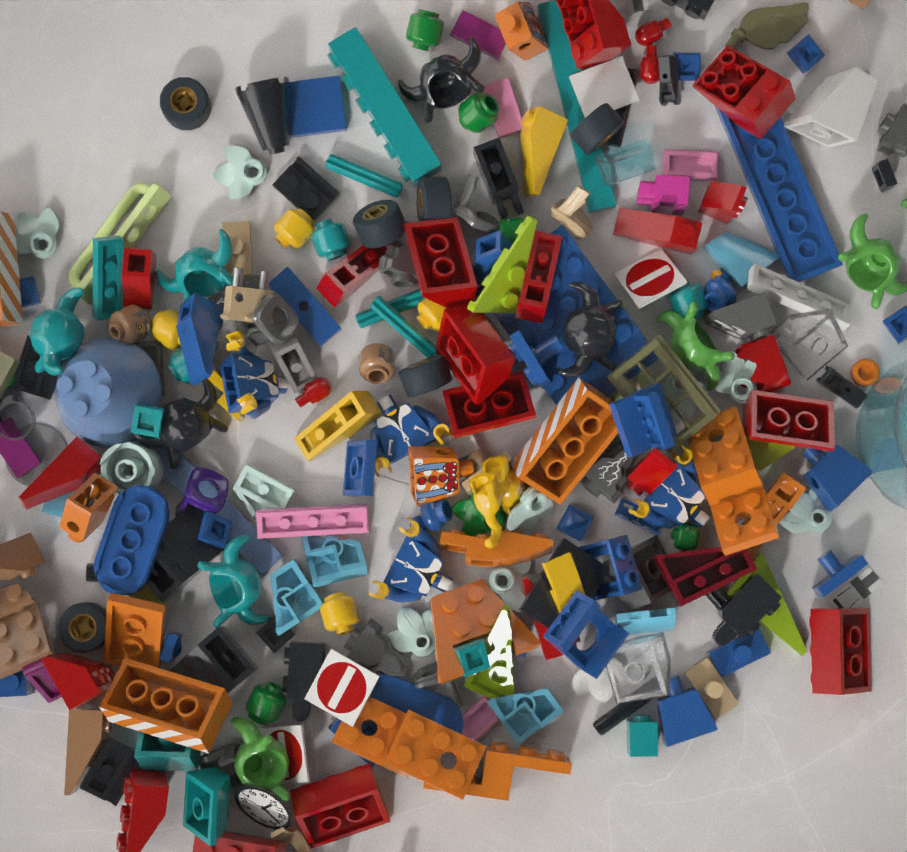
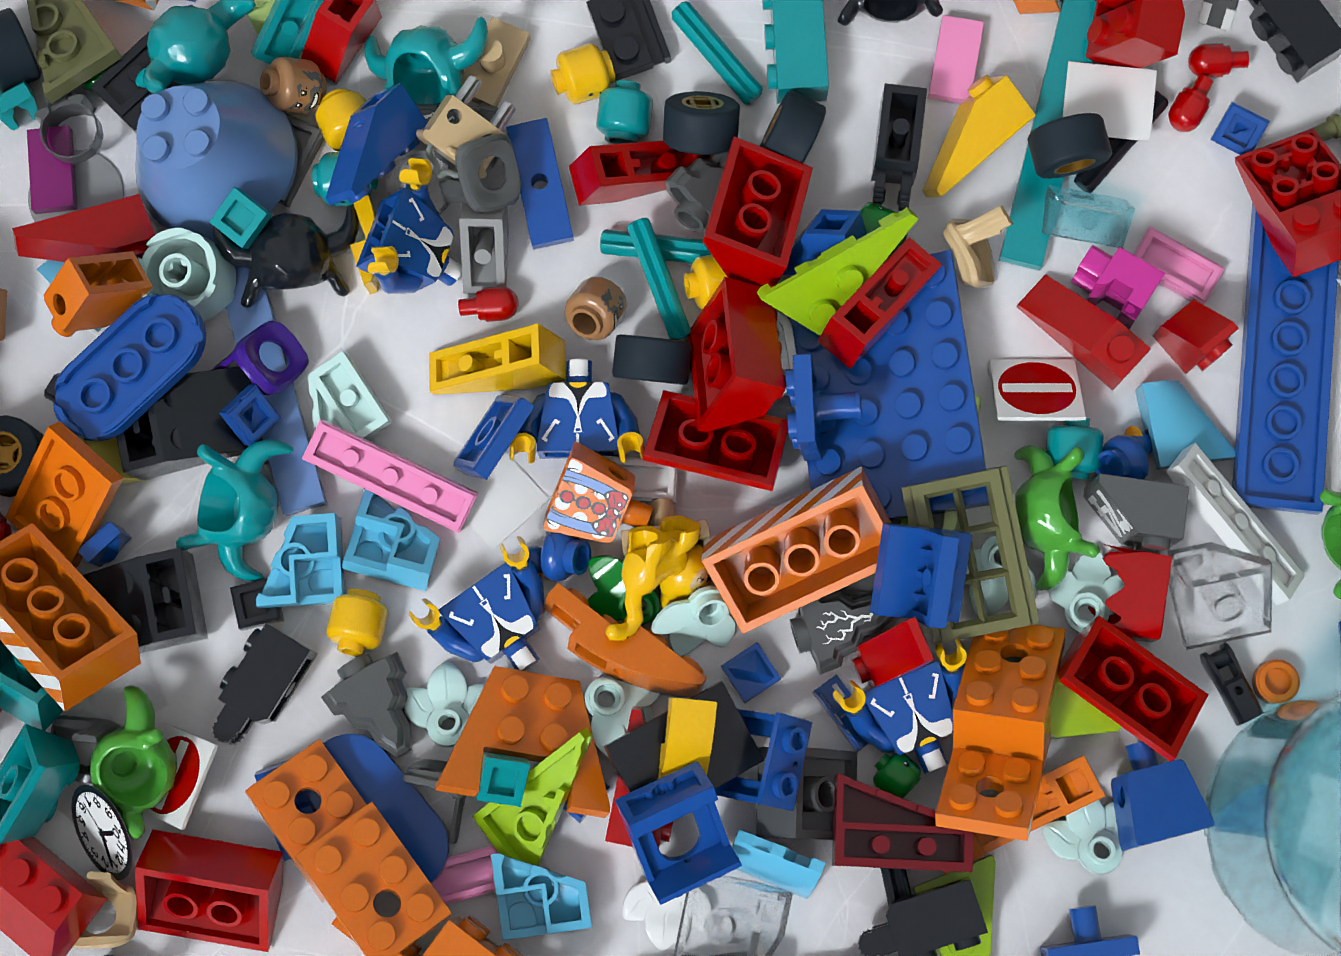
camera: 35 degrees right, 5 degrees down
(265, 703) = (188, 691): green head -> none
(342, 687) = (300, 723): piece -> none
(478, 112) = (917, 45): green head -> none
(478, 220) = (823, 163): dark grey piece -> none
(590, 331) = (910, 411): black piece -> none
(668, 75) = (1207, 127): black bar -> none

